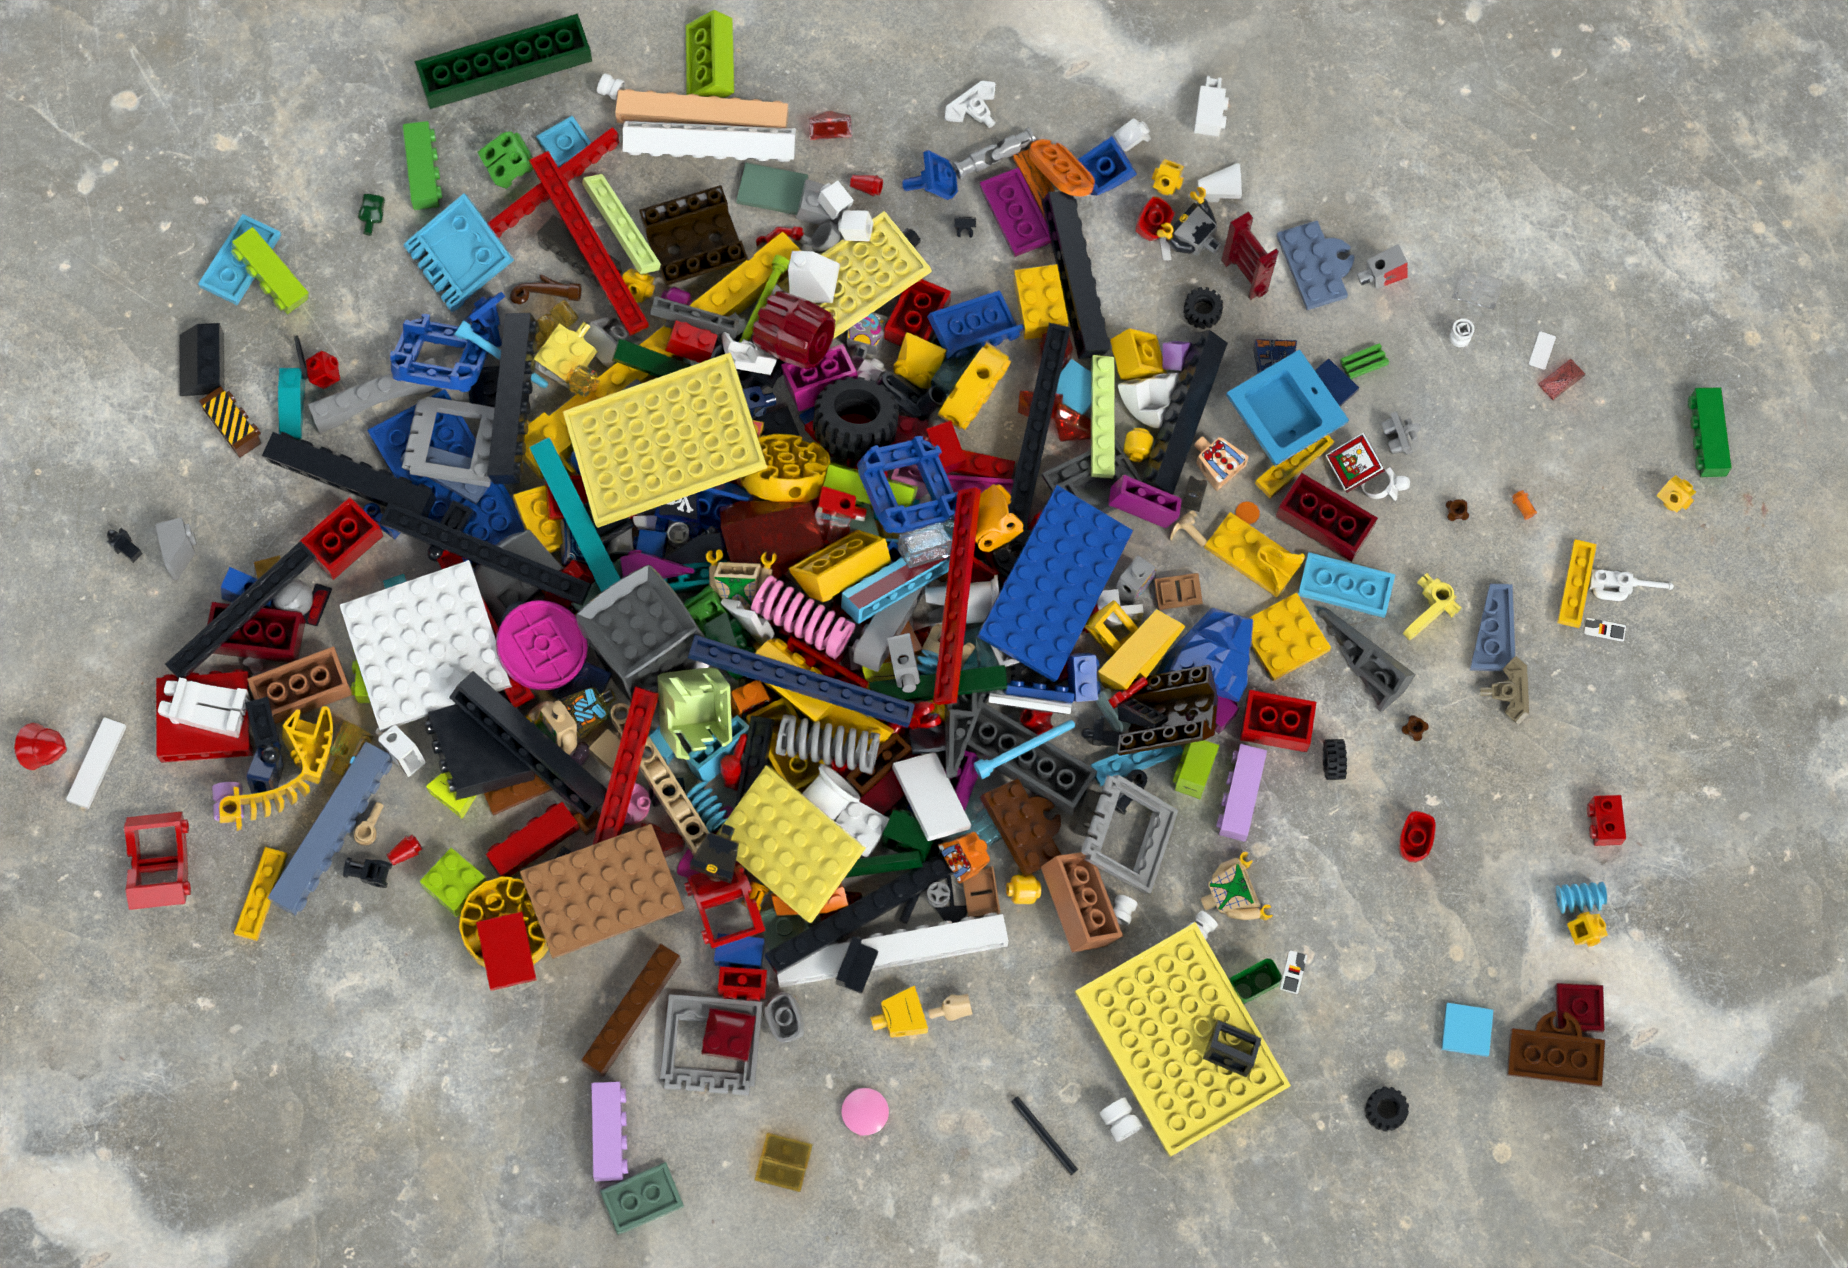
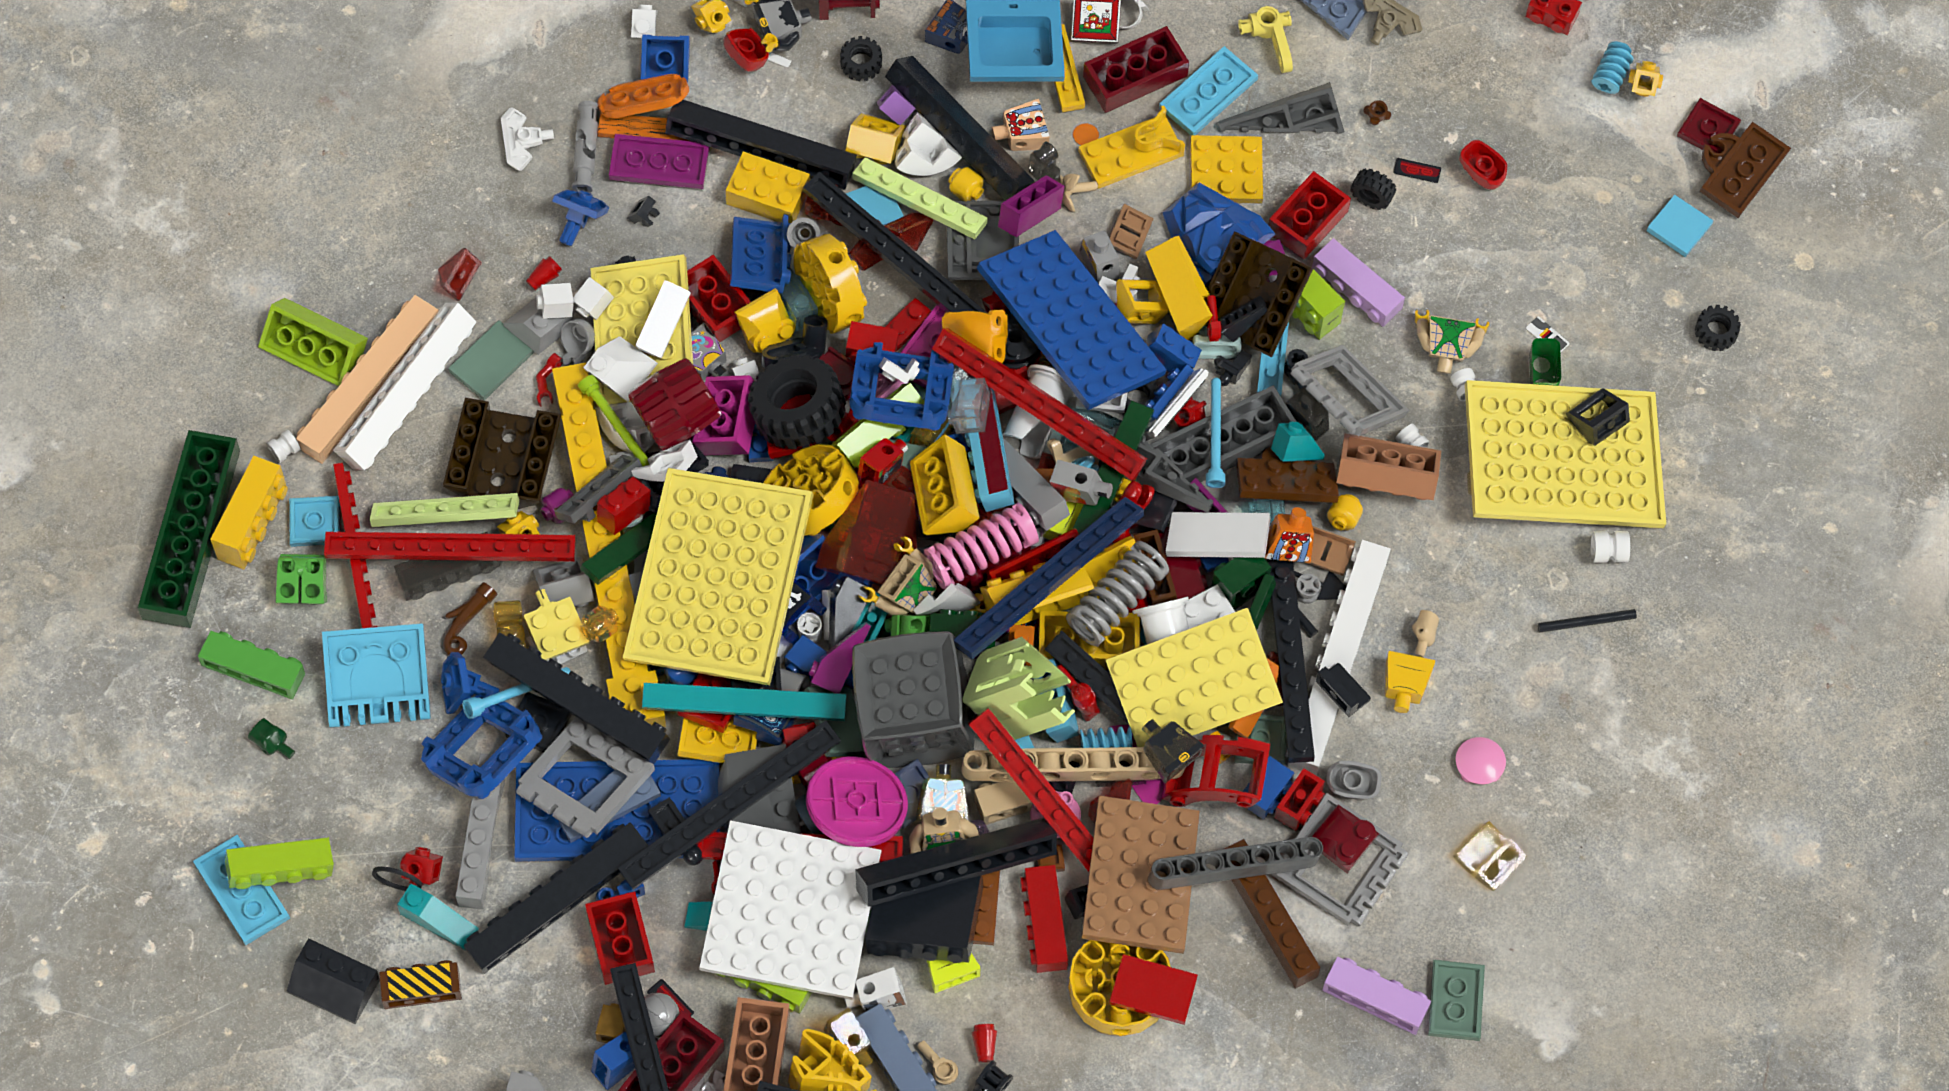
camera: 60 degrees left, 5 degrees down
(452, 881) = (1046, 1011): lime brick -> none
(538, 92) = (249, 513): none -> yellow brick
(643, 945) = (1227, 871): none -> dark grey beam
(866, 283) = (662, 319): none -> white slope
(919, 475) = (893, 371): none -> white bracket
(1014, 346) = (794, 230): none -> light grey plant
(1057, 818) = (1295, 443): none -> teal slope
(1383, 788) = (1417, 170): none -> sticker

